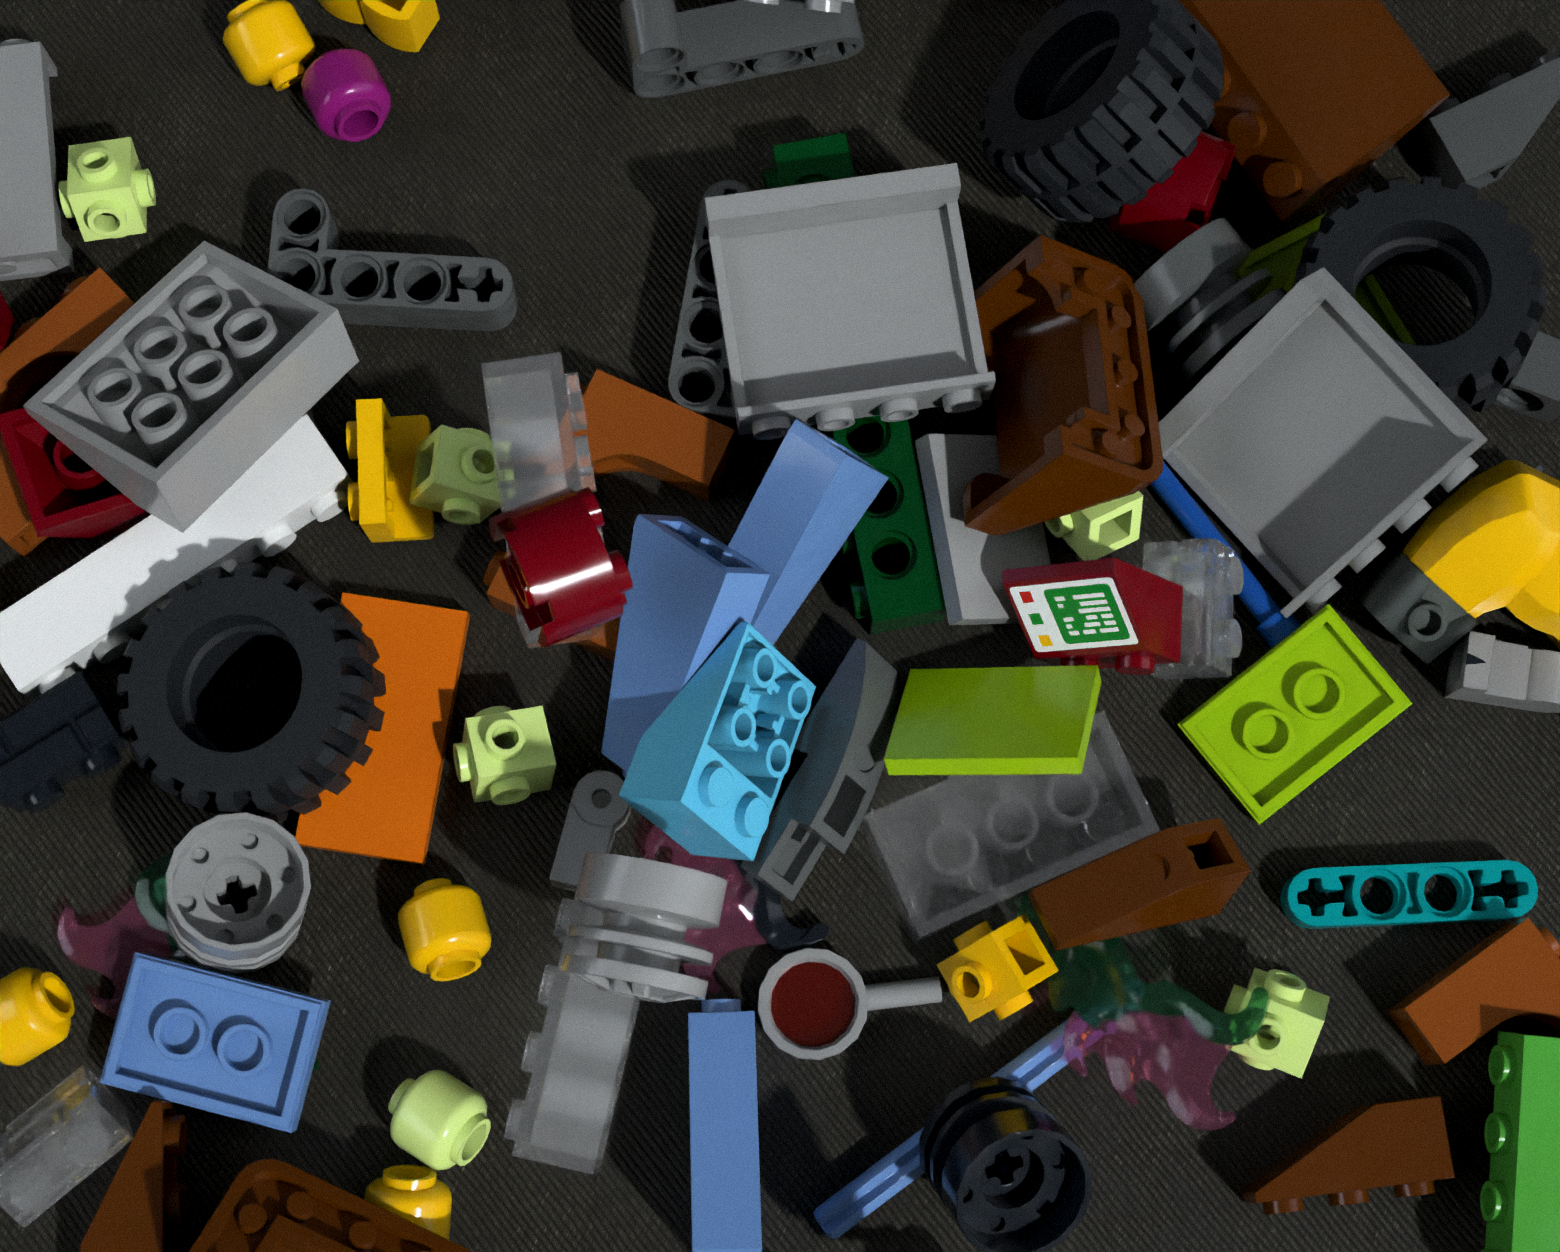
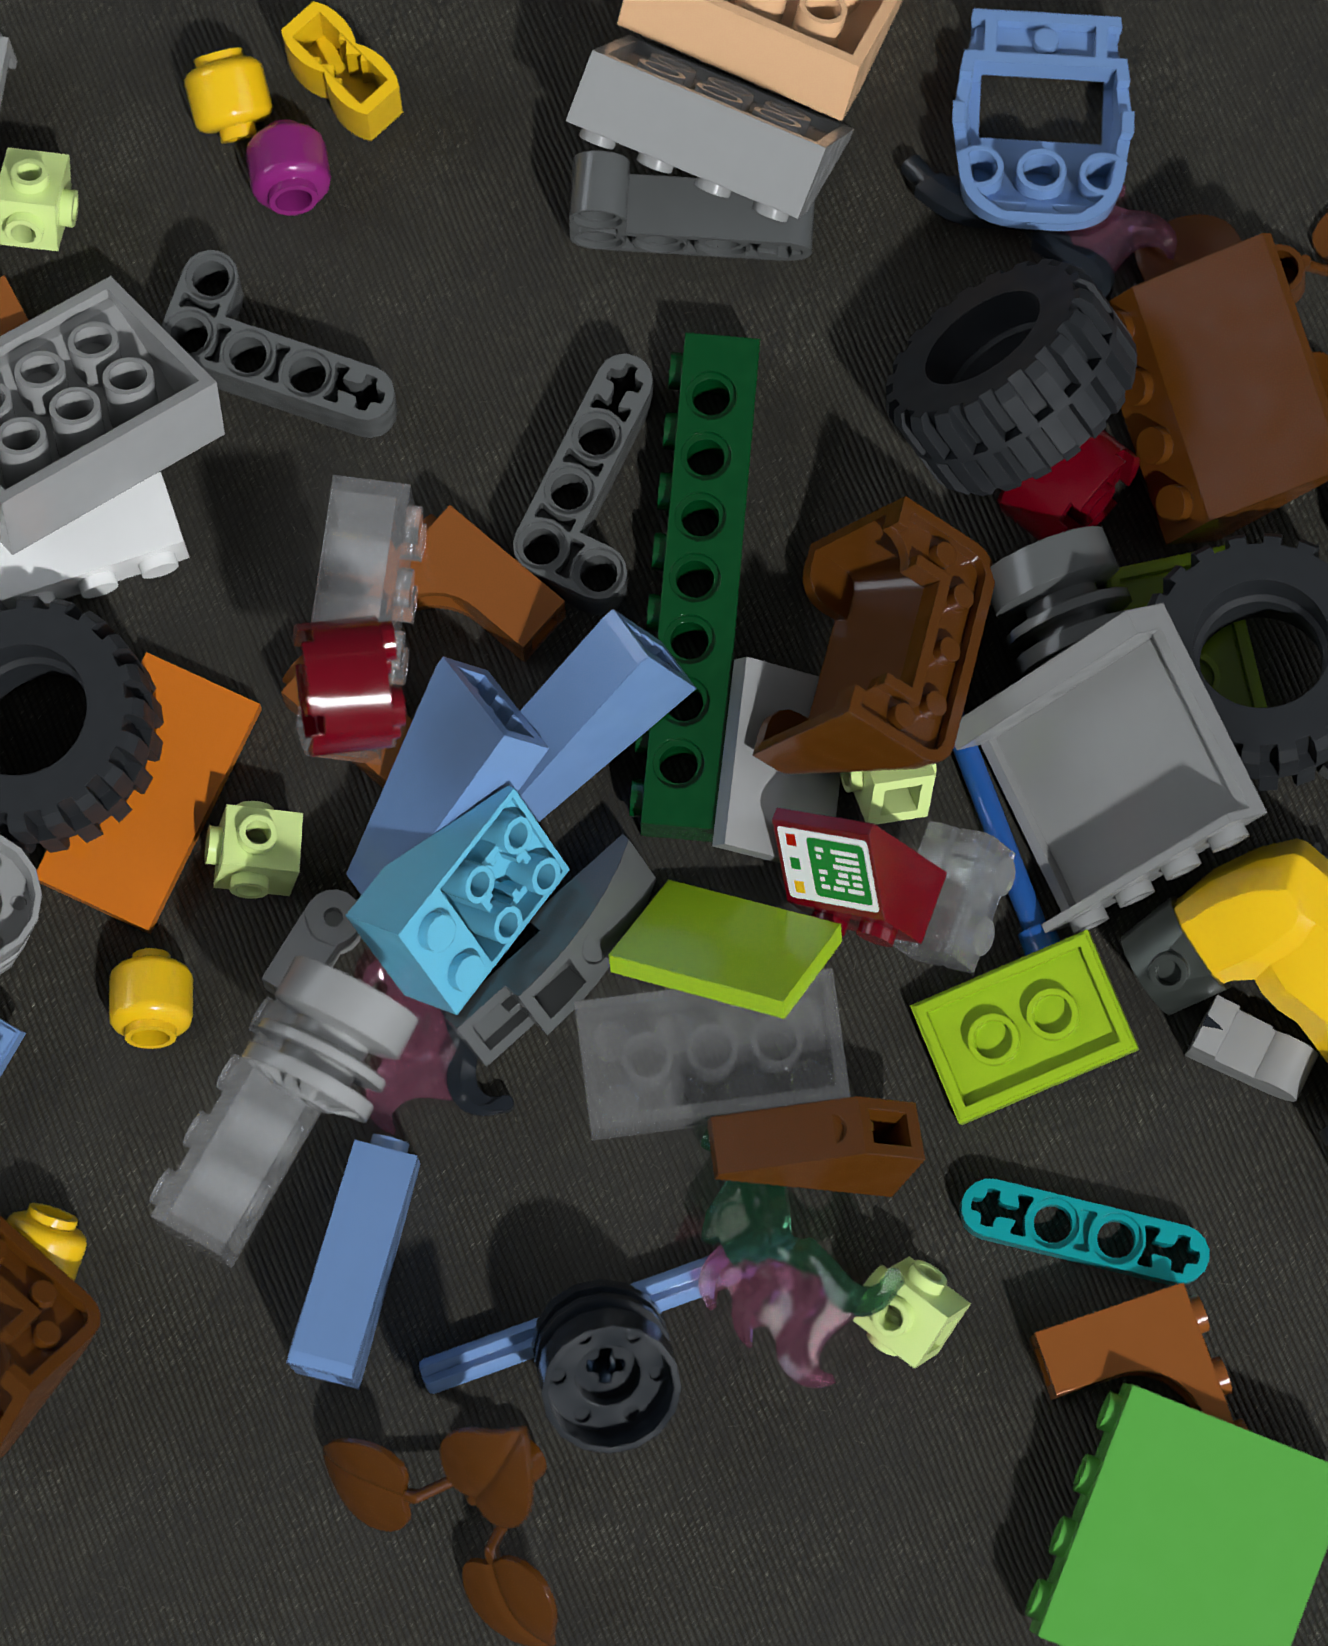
camera: 20 degrees right, 0 degrees up
(385, 473) = (227, 551): yellow bracket -> none
(439, 1120) = (94, 1173): yellowish green head -> none
(456, 475) = (283, 570): yellowish green brick -> none
(818, 1002) = (483, 1172): piece -> none
(847, 301) = (708, 507): light grey panel -> none
(996, 968) = (647, 1187): yellow brick -> none
(1365, 1149) = (967, 1458): reddish brown slope -> none

